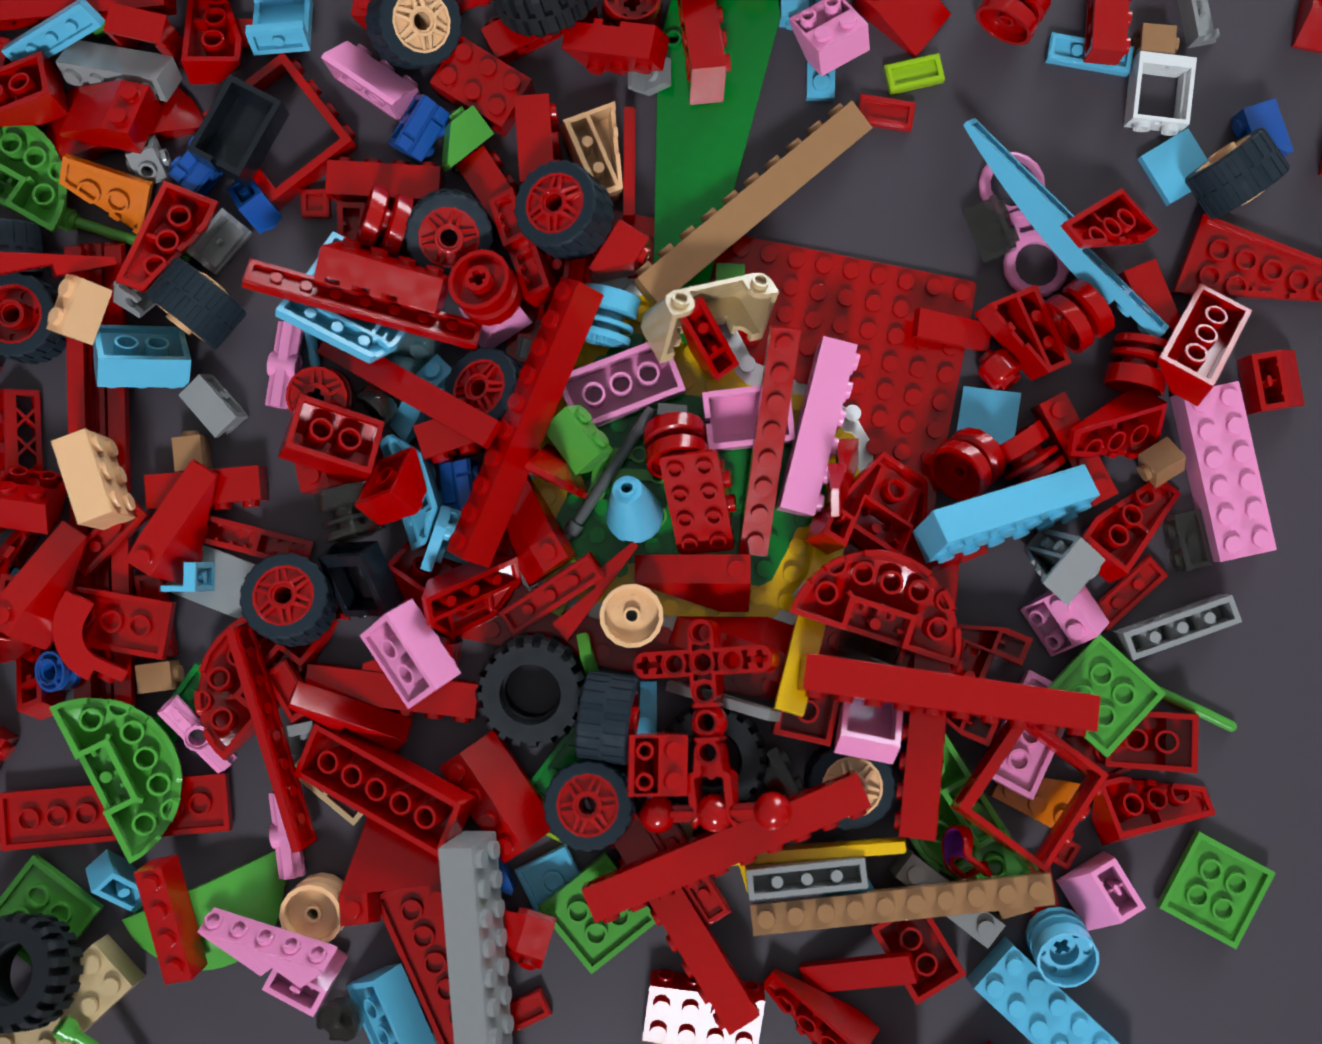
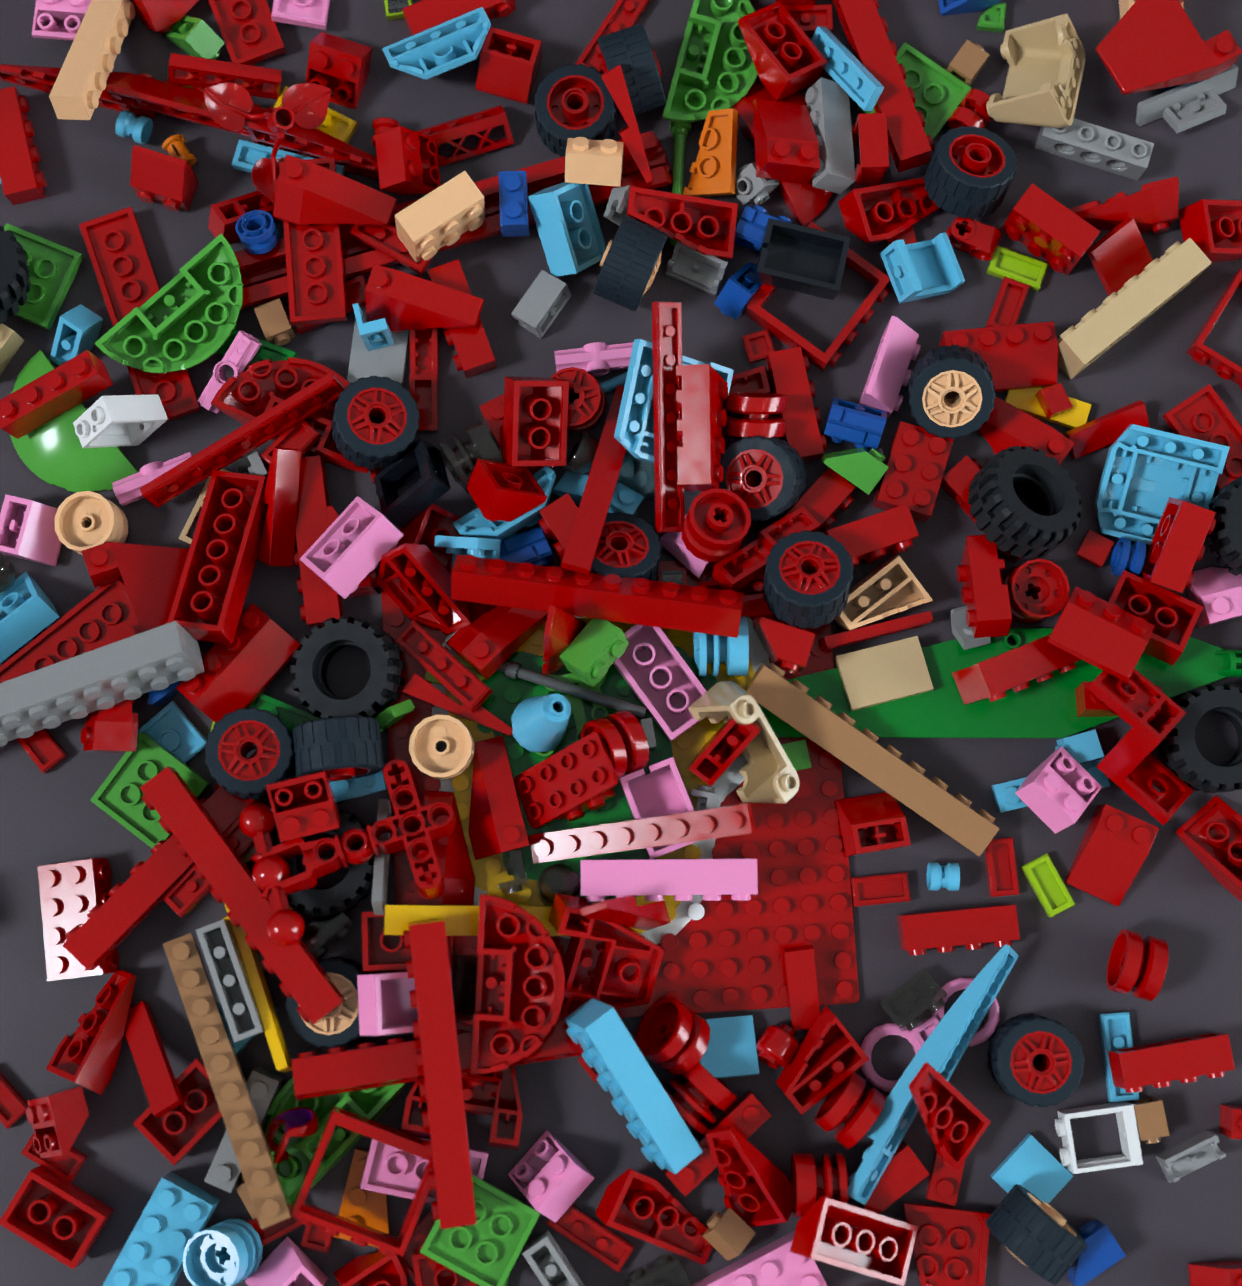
camera: 70 degrees right, 5 degrees down
(70, 643) = (295, 231): red arch -> none
(101, 403) = (513, 203): none -> blue brick
(191, 446) = (495, 294): medium nougat brick -> none
(216, 856) = (120, 420): none -> white window
(267, 946) = (46, 489): bright pink slope -> none
(672, 169) = (884, 673): none -> tan tile
(752, 368) = (706, 793): none -> light grey bracket
(766, 573) = (516, 867): none -> clear smoke bracket
(790, 537) = (557, 879): none -> clear smoke hair
(814, 221) = (872, 824): none -> red slope
(876, 232) = (880, 889): none -> red tile
(881, 169) = (943, 876): none -> medium azure wheel
(933, 168) = (958, 927): none -> red brick
(1063, 562) = (597, 1154): light grey wedge -> none
(1076, 129) = (1058, 1063): none -> wheel
(1162, 247) = (944, 1181): none -> red plate

